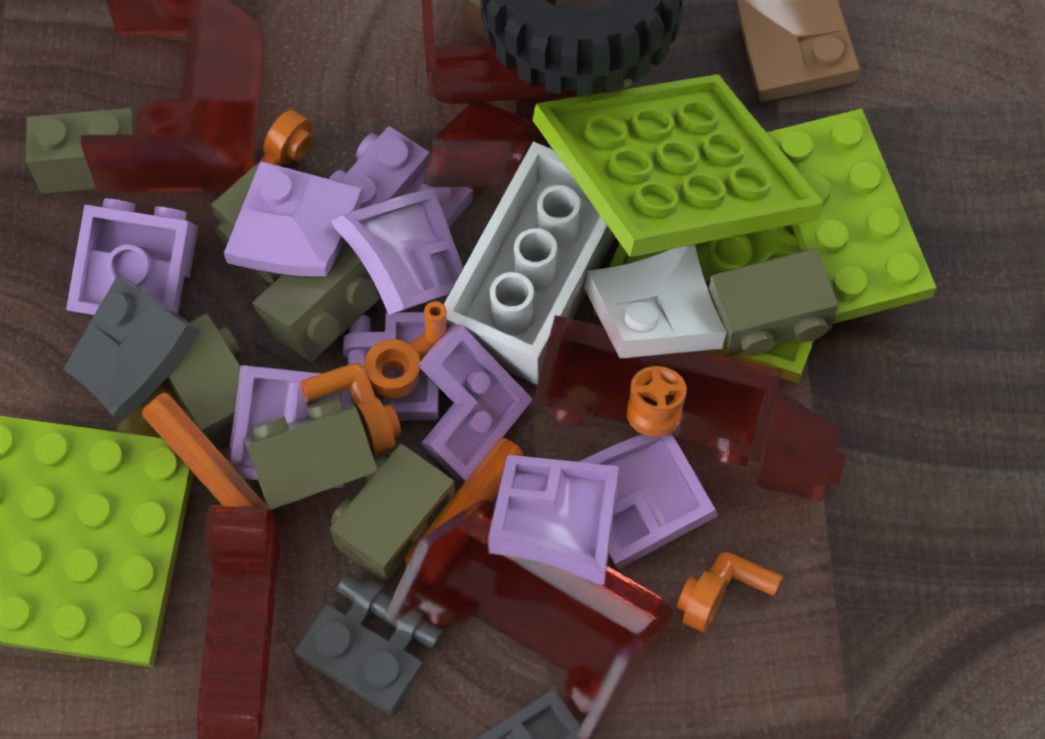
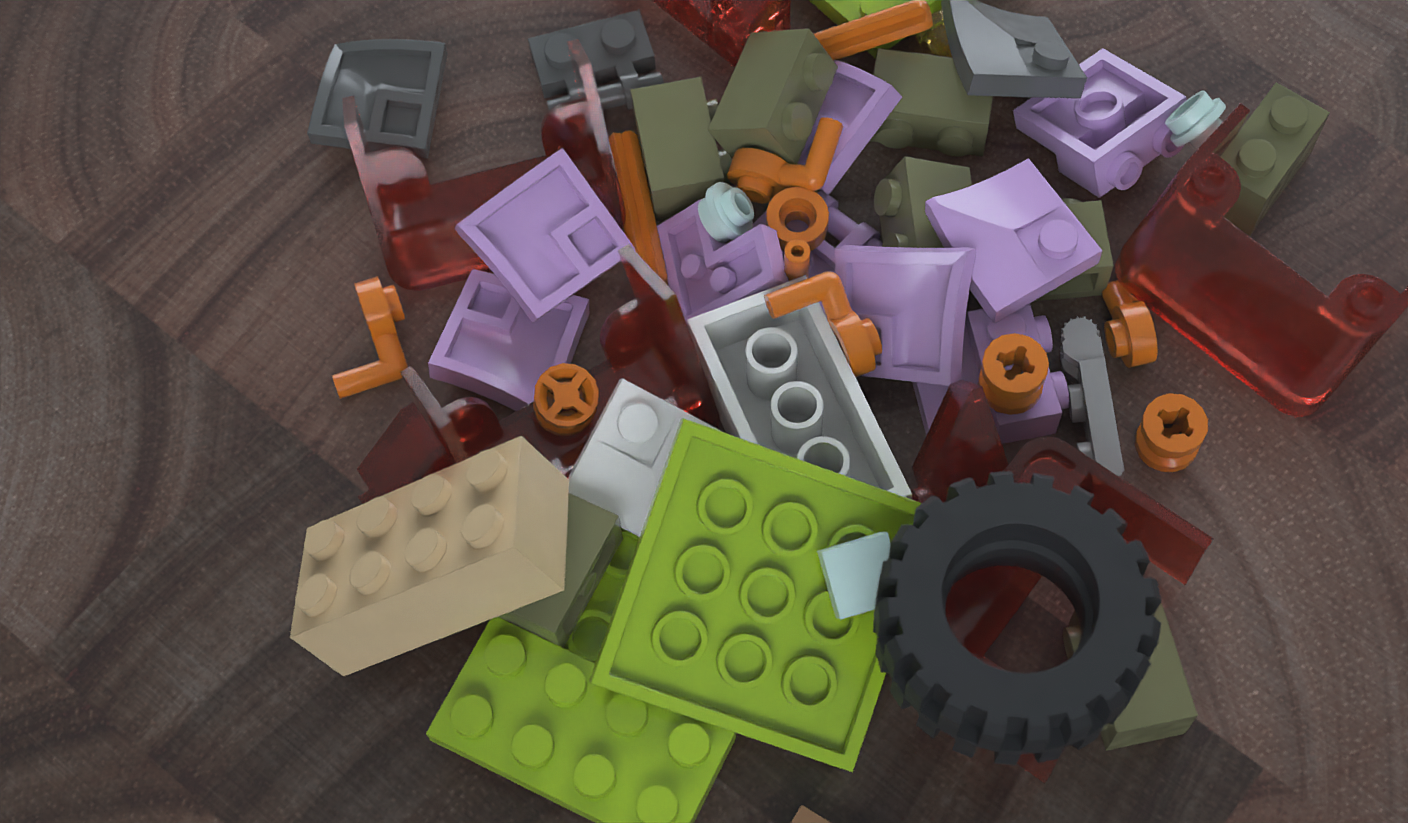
camera: 135 degrees right, 0 degrees up
(103, 189) = (1195, 120): none -> light aqua plate
(350, 83) = (1165, 447): none -> orange wheel
(390, 96) = (1090, 394): none -> light grey hinge
(395, 160) = (1009, 389): none -> orange wheel
(426, 420) = (726, 212): none -> light aqua plate
(450, 259) = (855, 336): none -> orange plate
(618, 114) = (854, 573): none -> light aqua tile
(848, 350) = (433, 558): none -> tan brick

